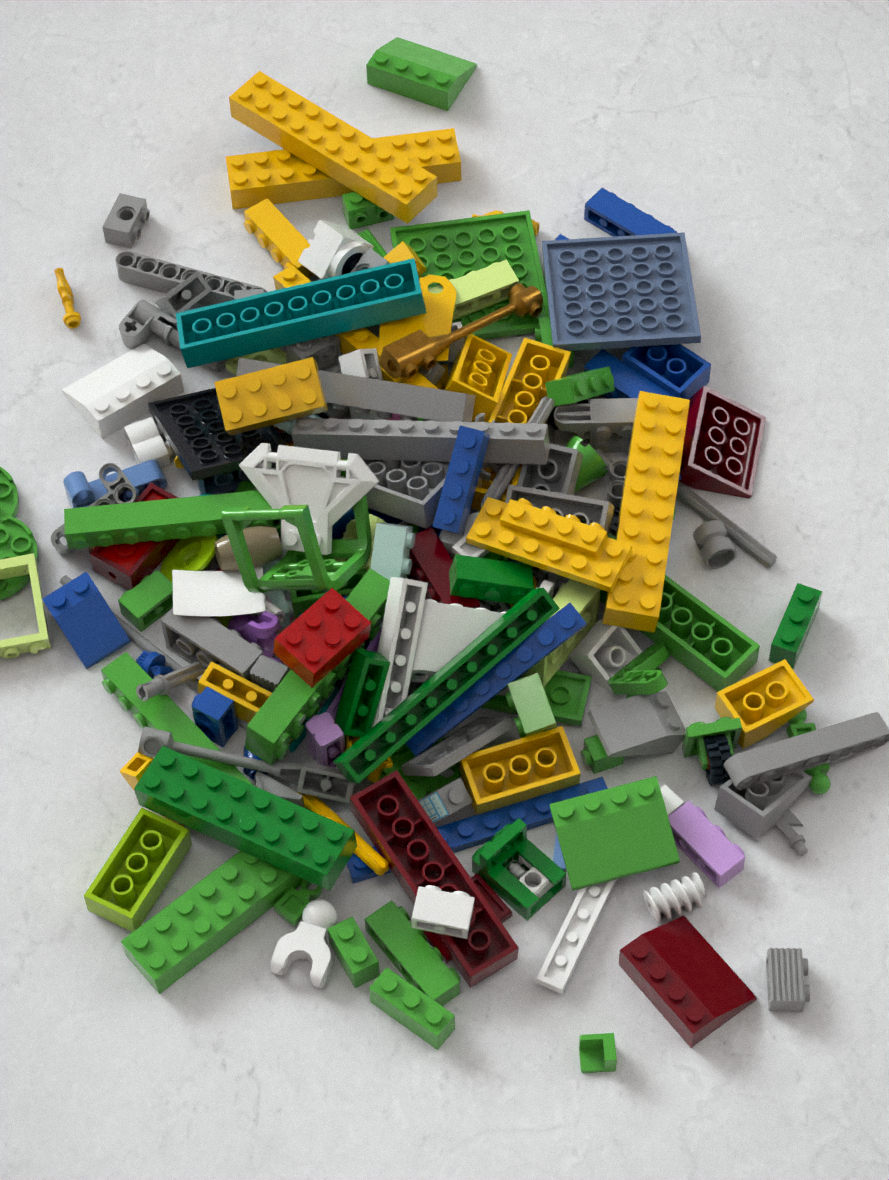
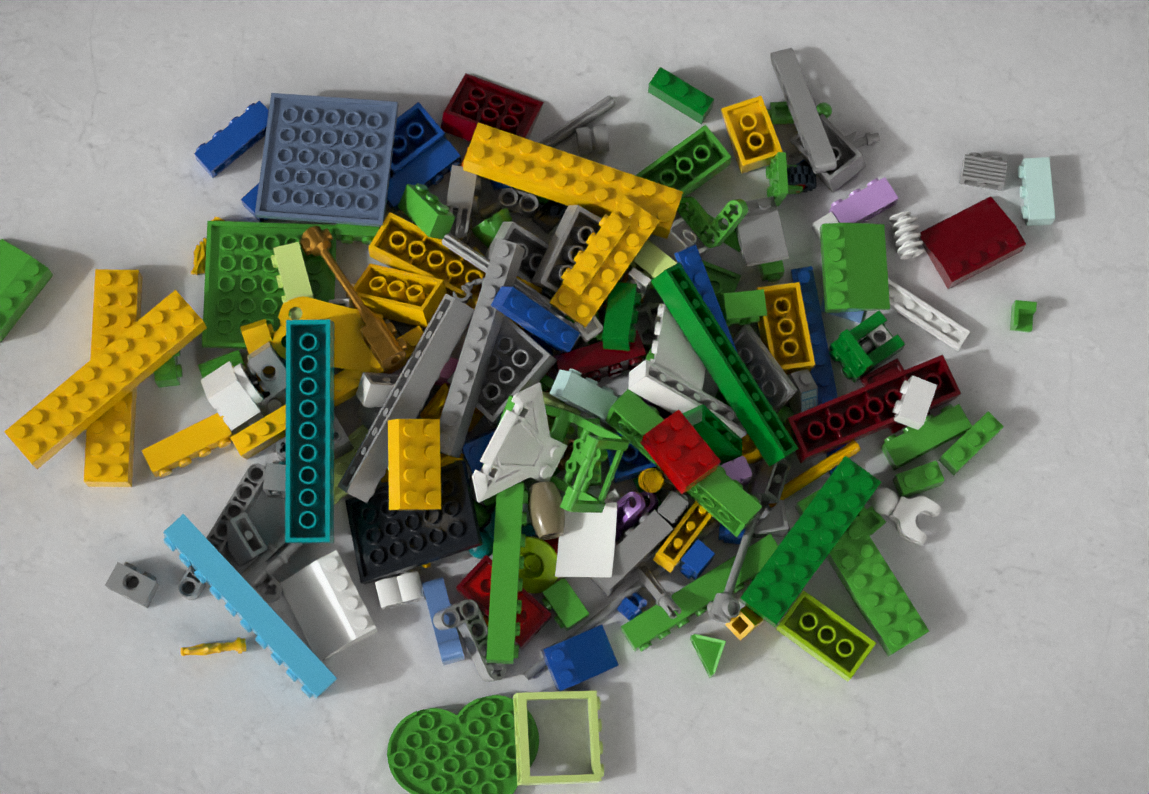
camera: 85 degrees left, 20 degrees up
(104, 304) = (249, 606): none -> medium azure brick
(106, 751) = (708, 651): none -> bright green slope
(775, 1049) = (1036, 191): none -> light aqua brick

